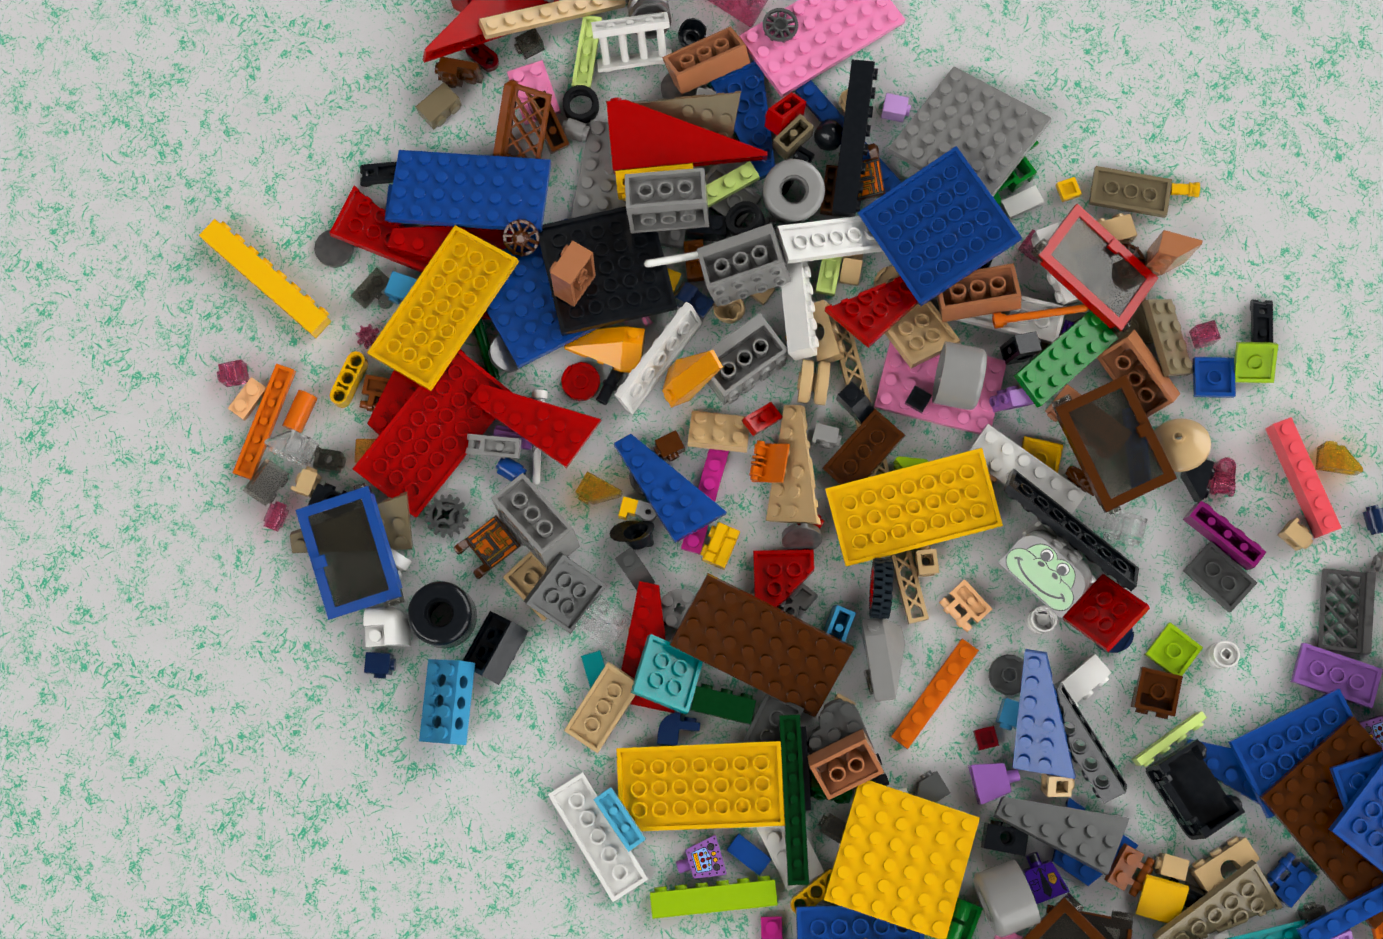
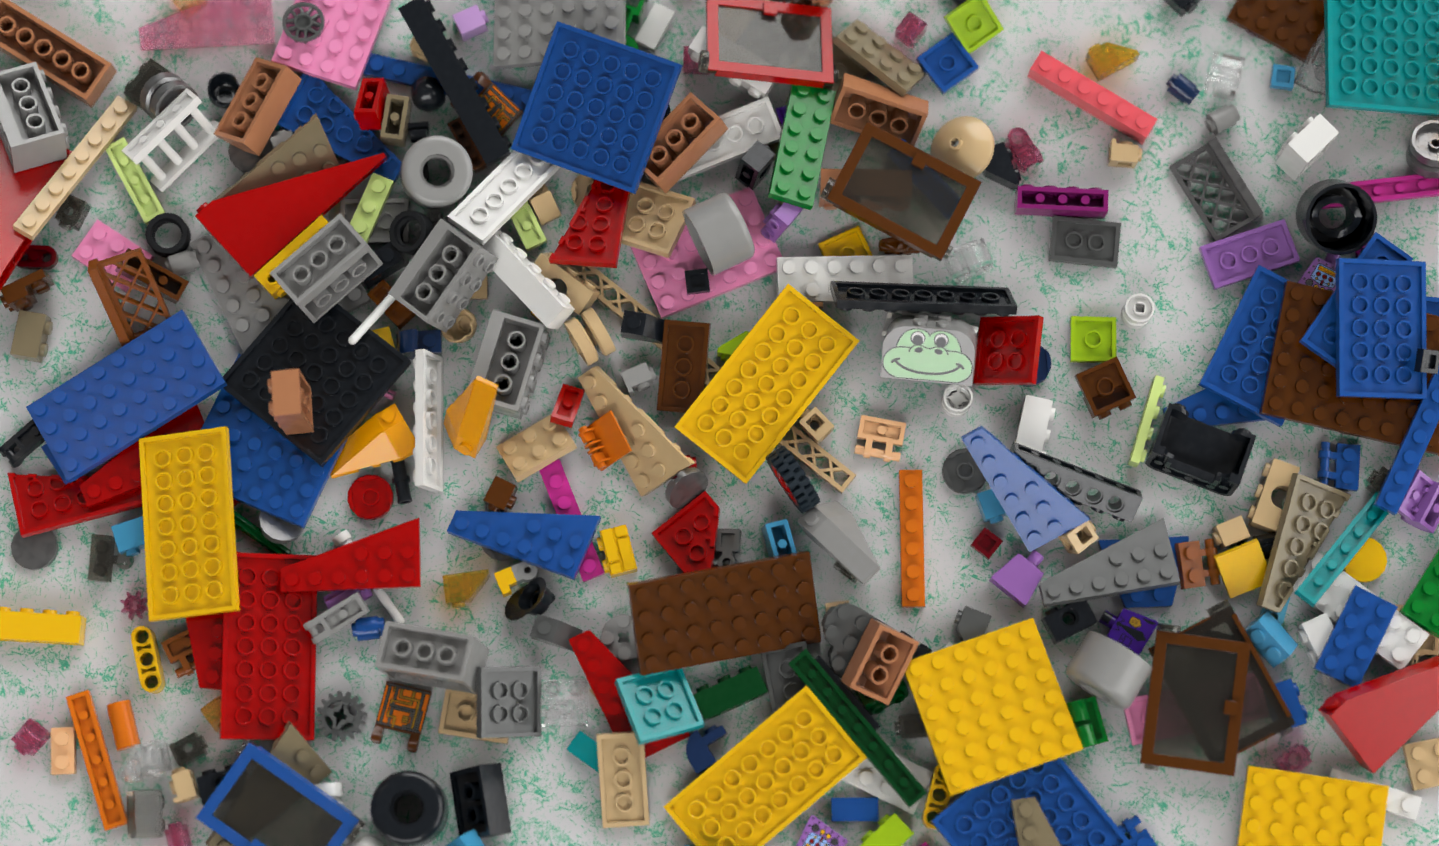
camera: 40 degrees left, 0 degrees up
(521, 237) = (212, 404): reddish brown wheel -> none
(1000, 319) = (717, 152): orange piece -> none

